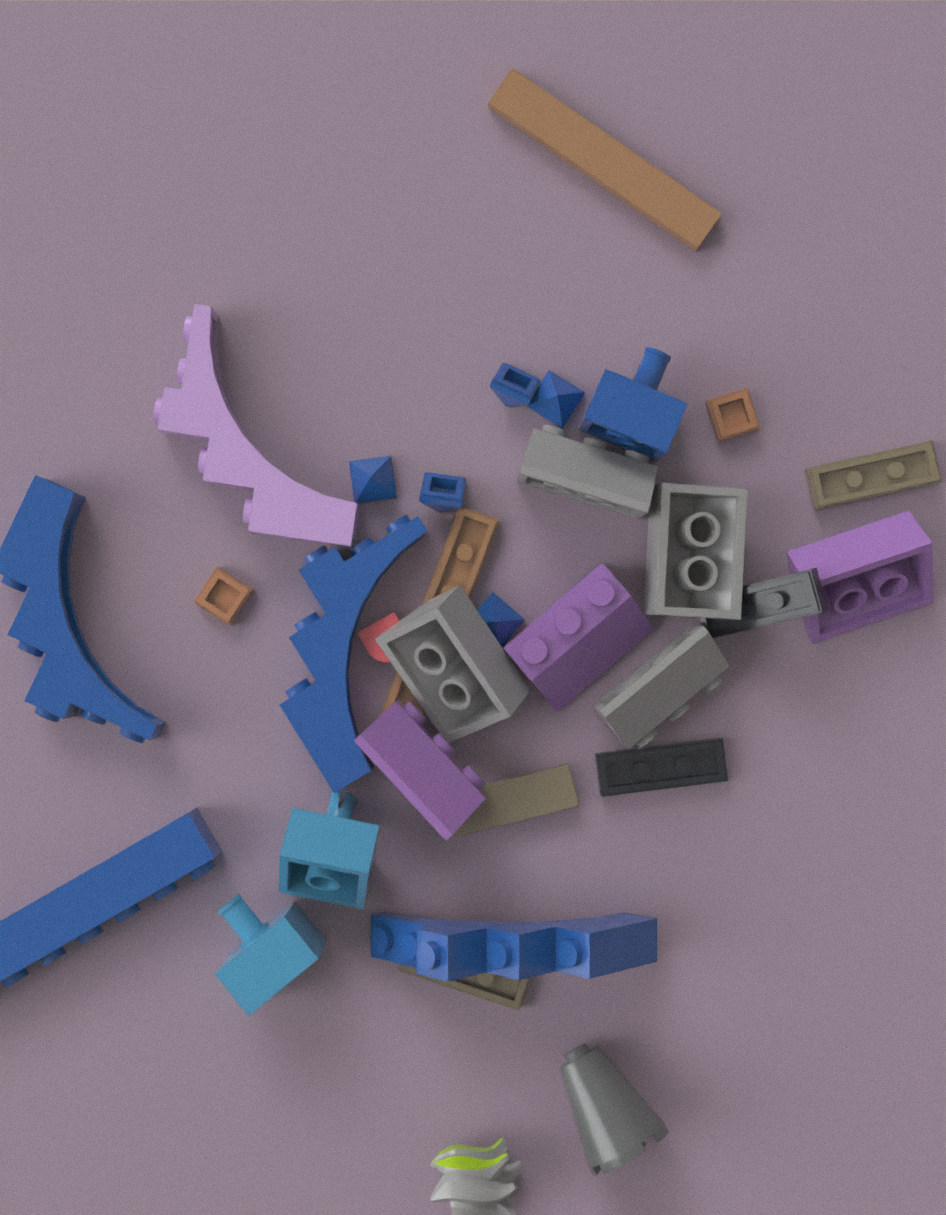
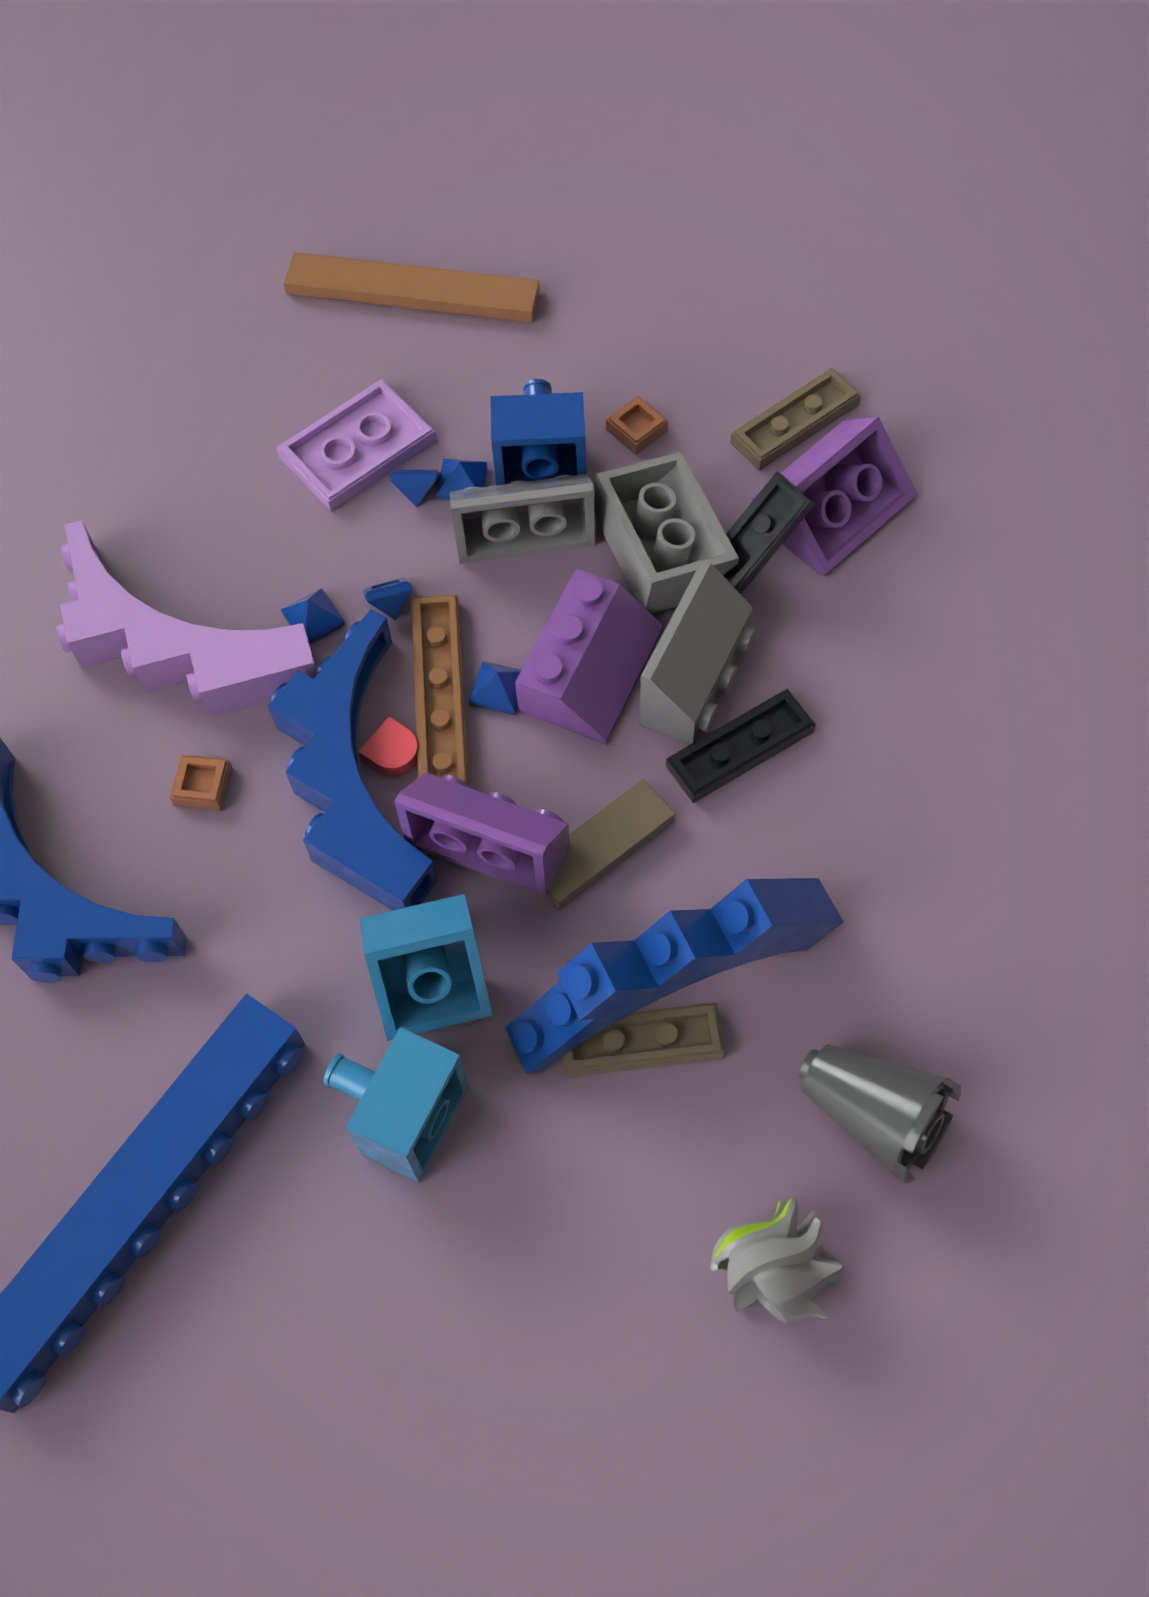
camera: 20 degrees left, 25 degrees down
(454, 665) = (470, 725): light grey slope -> none
(481, 316) = (356, 444): none -> lavender tile

